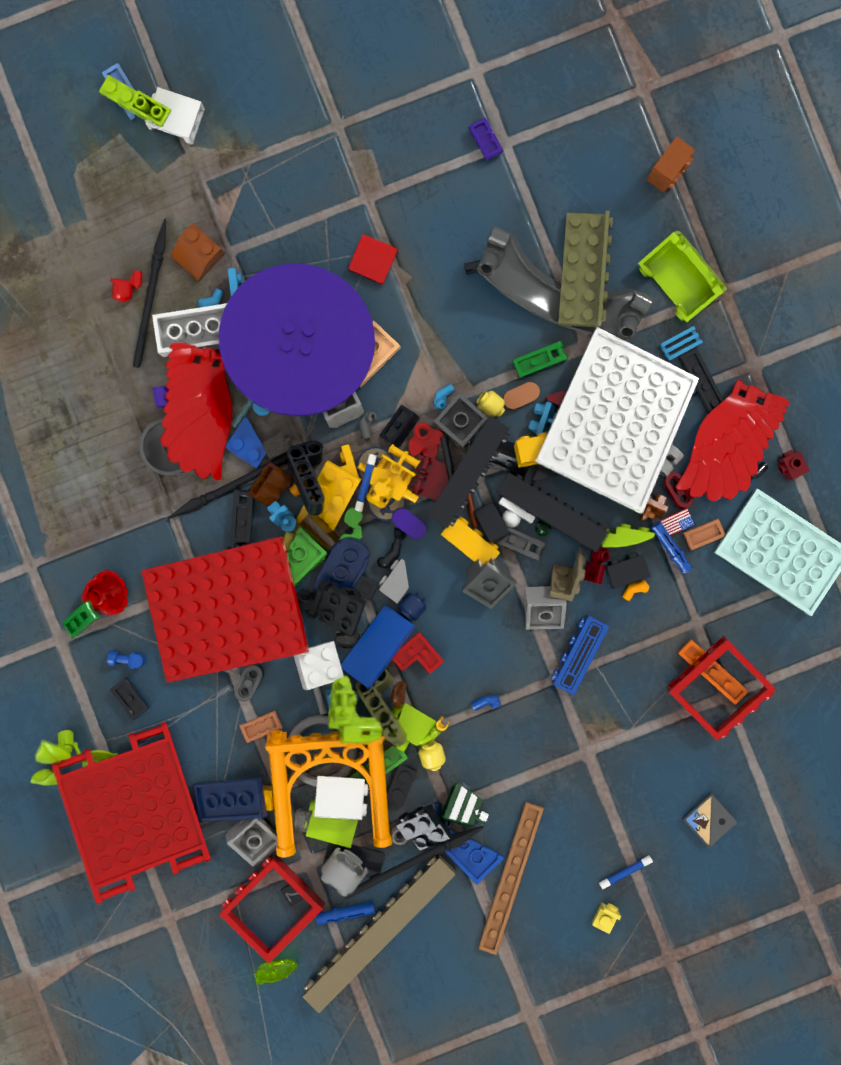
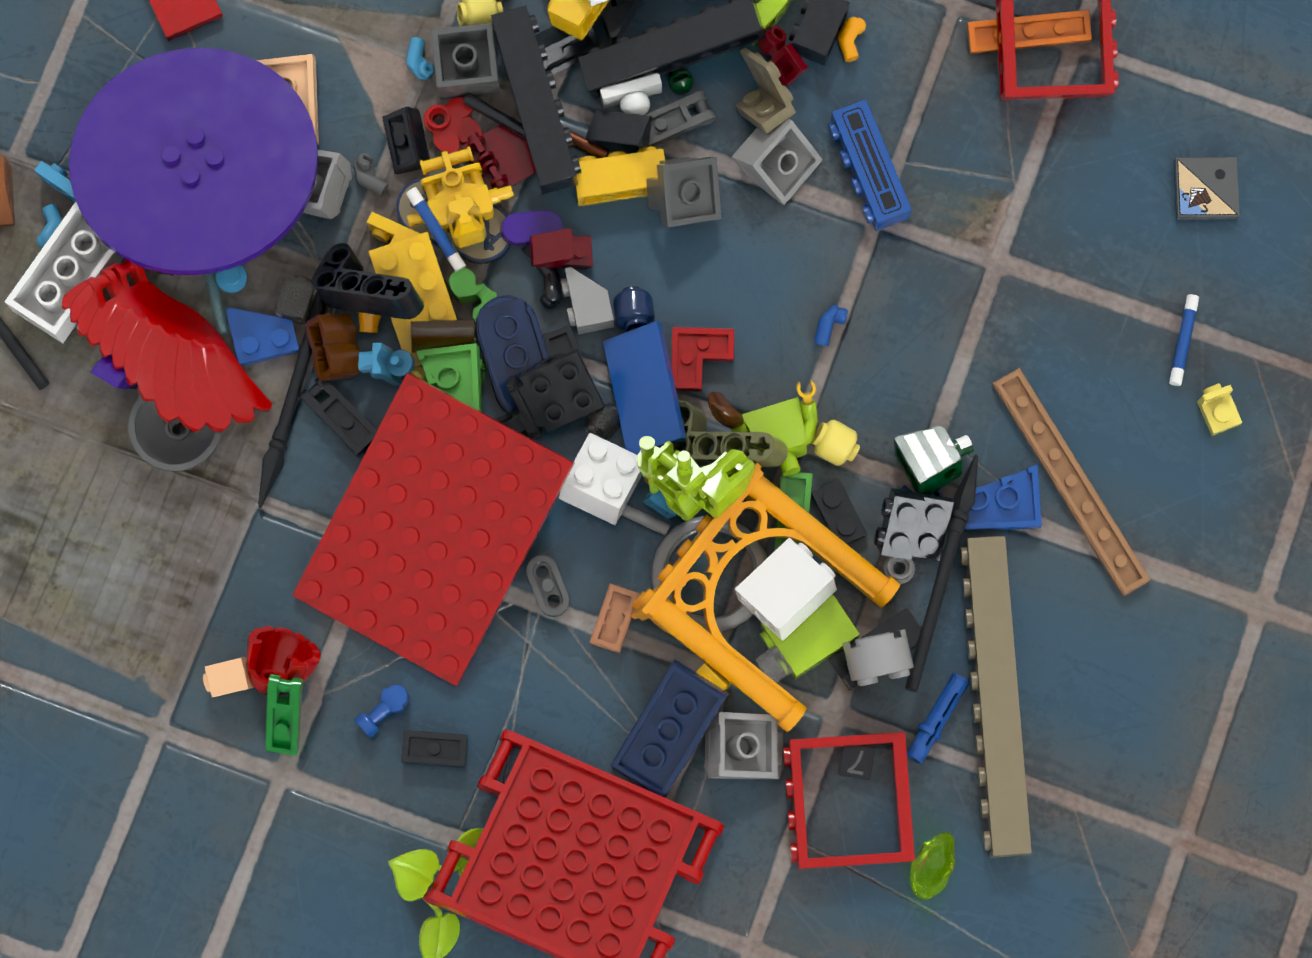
camera: 45 degrees left, 10 degrees down
(76, 577) = (227, 677): none -> light nougat brick
(409, 548) = (561, 250): none -> dark red slope

